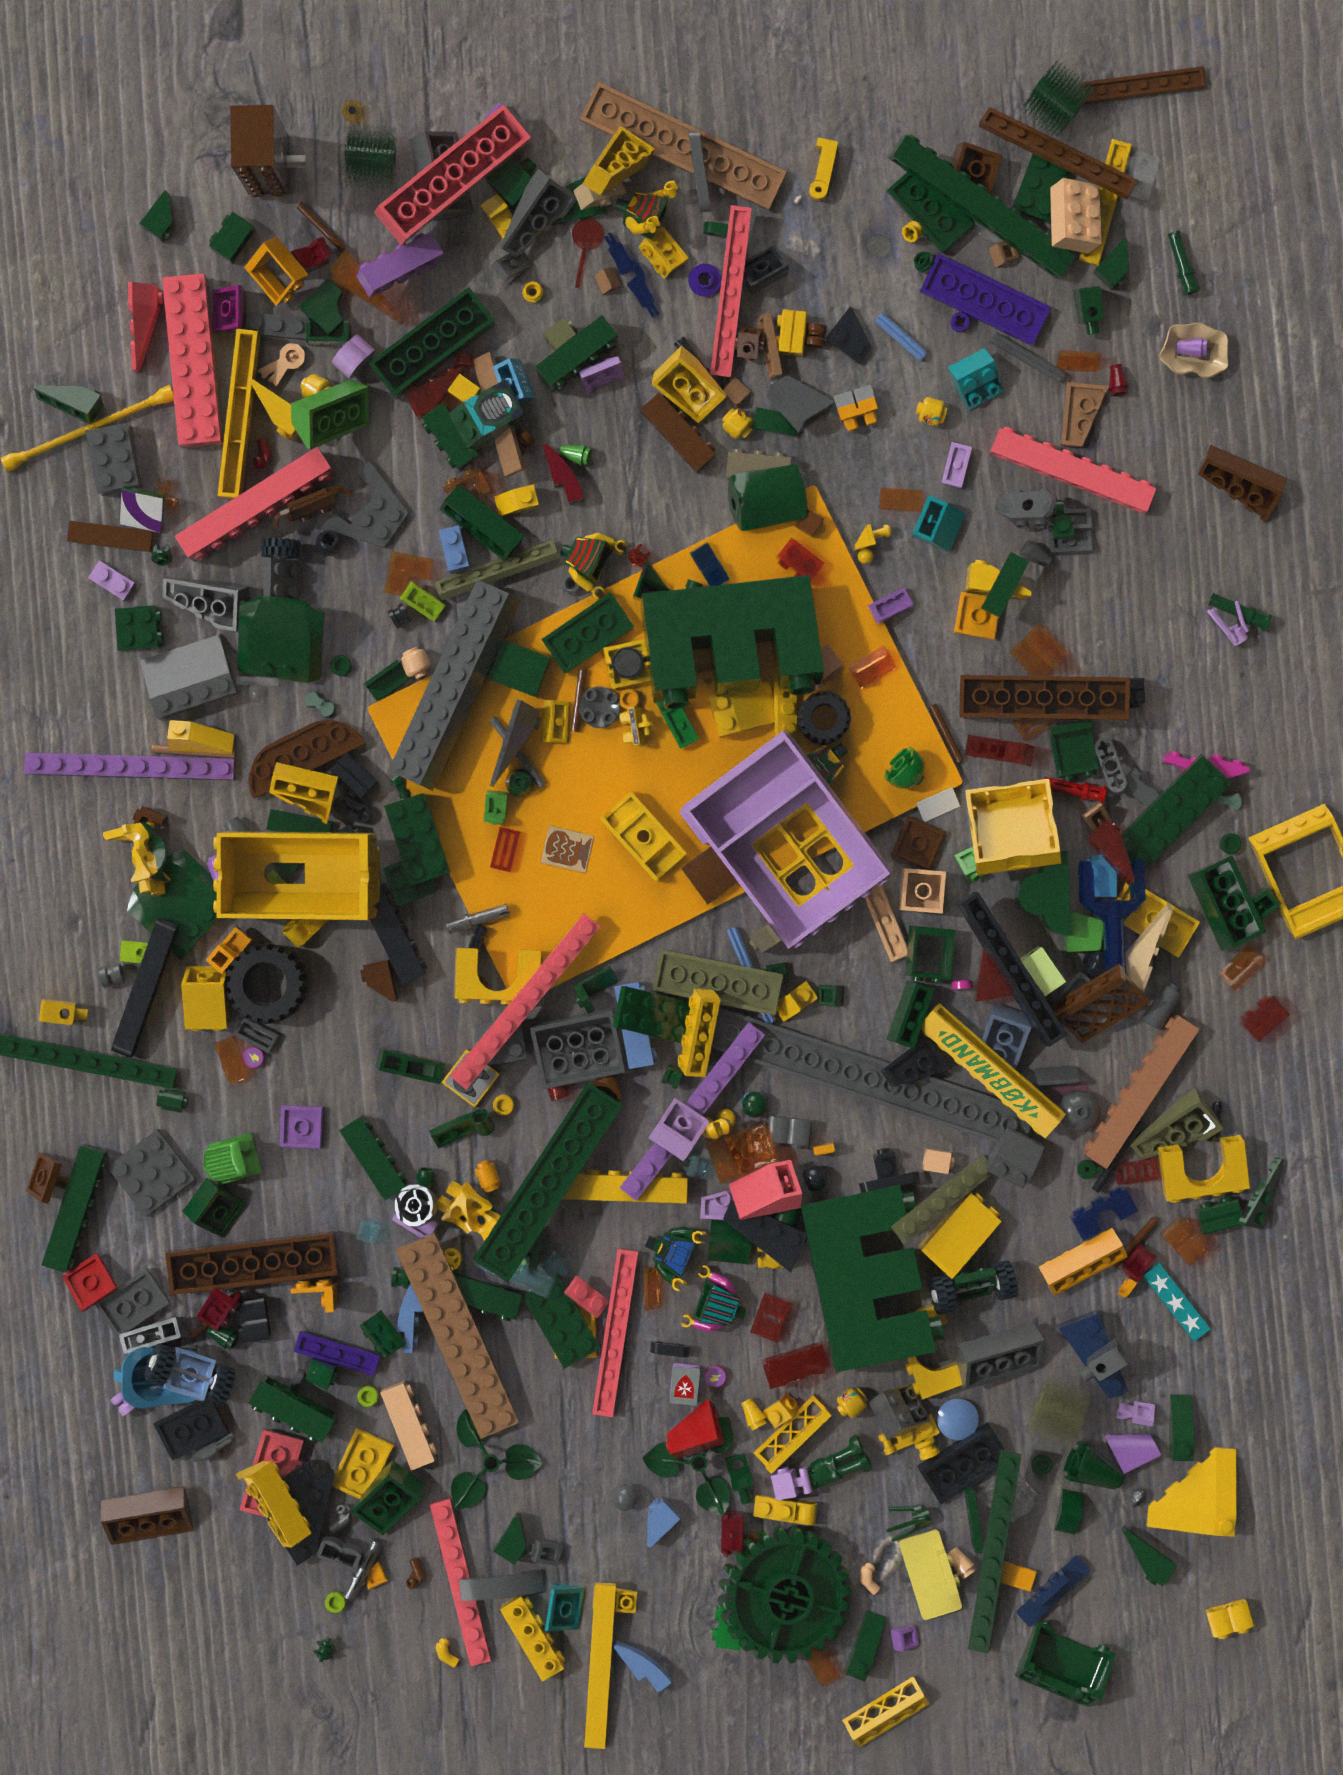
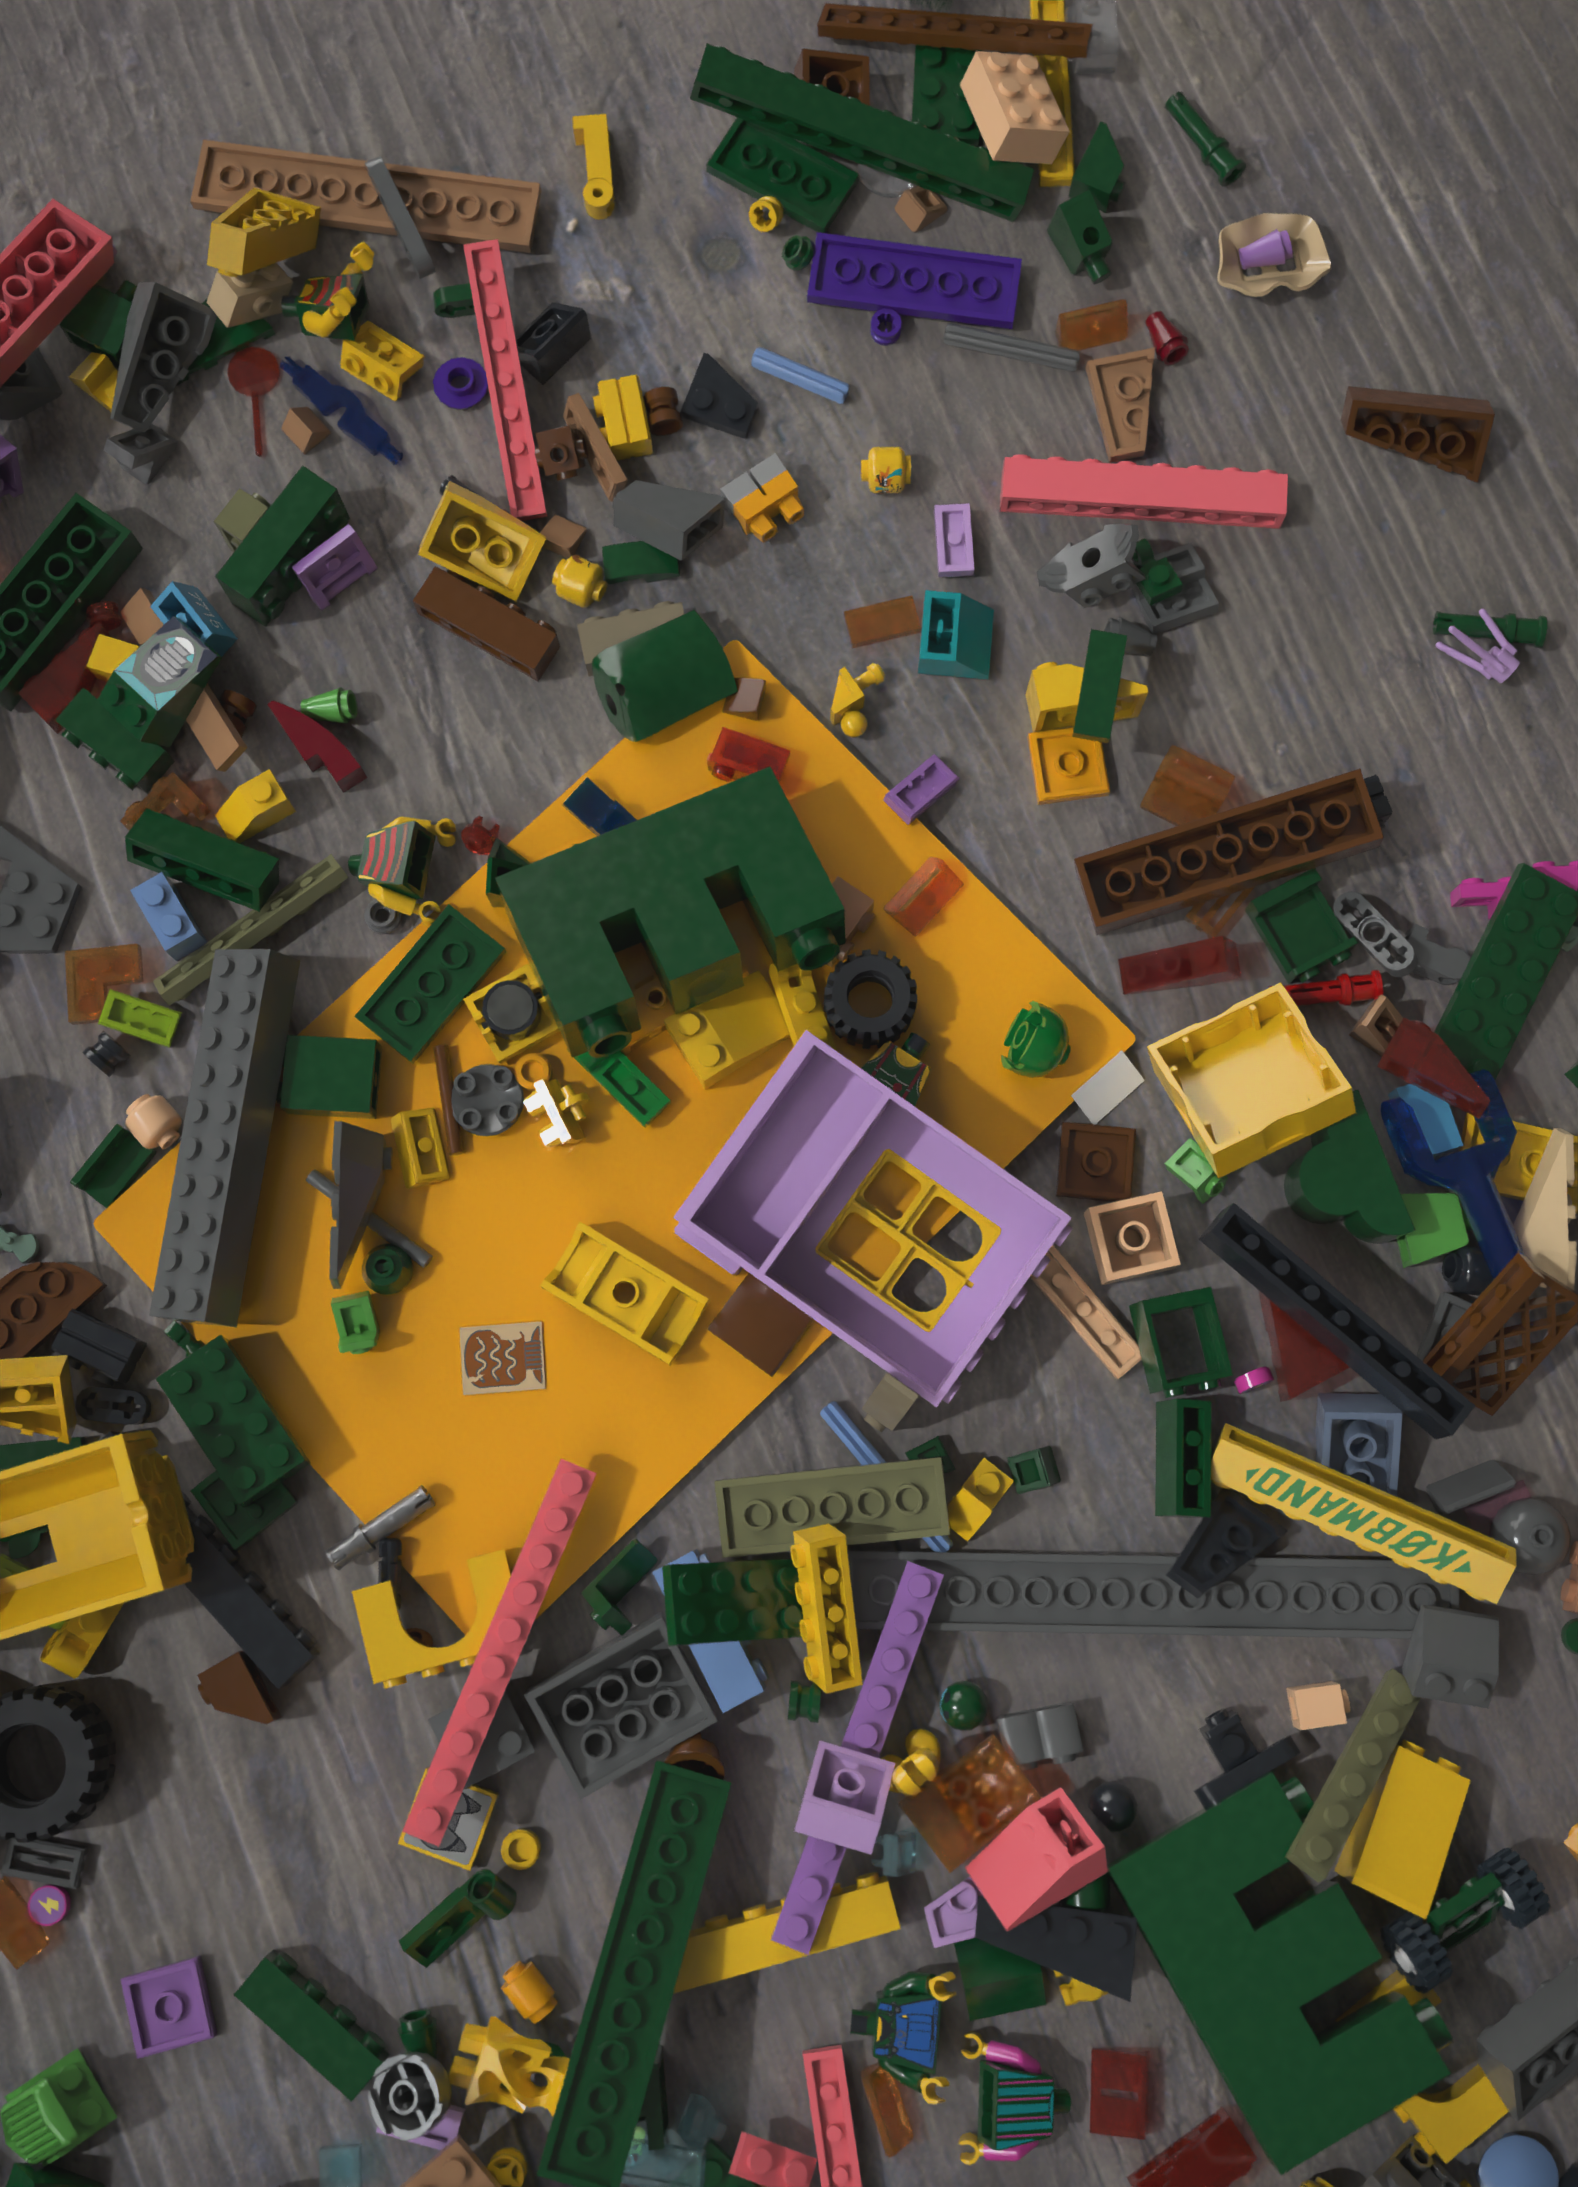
camera: 20 degrees left, 10 degrees down
(340, 665) = (30, 1167): dark green tile -> none
(409, 1066) = (333, 1832): dark green slope -> none
(505, 847) = (379, 1395): clear red tile -> none
(532, 285) = (182, 474): yellow plate -> none
(558, 1092) = (612, 1794): clear red brick -> none
(823, 1149) = (1111, 1747): light orange tile -> none
(946, 733) = (1081, 967): reddish brown bar -> none
(976, 379) = (941, 400): teal slope -> none
(1042, 970) = (1389, 1305): yellowish green brick -> none

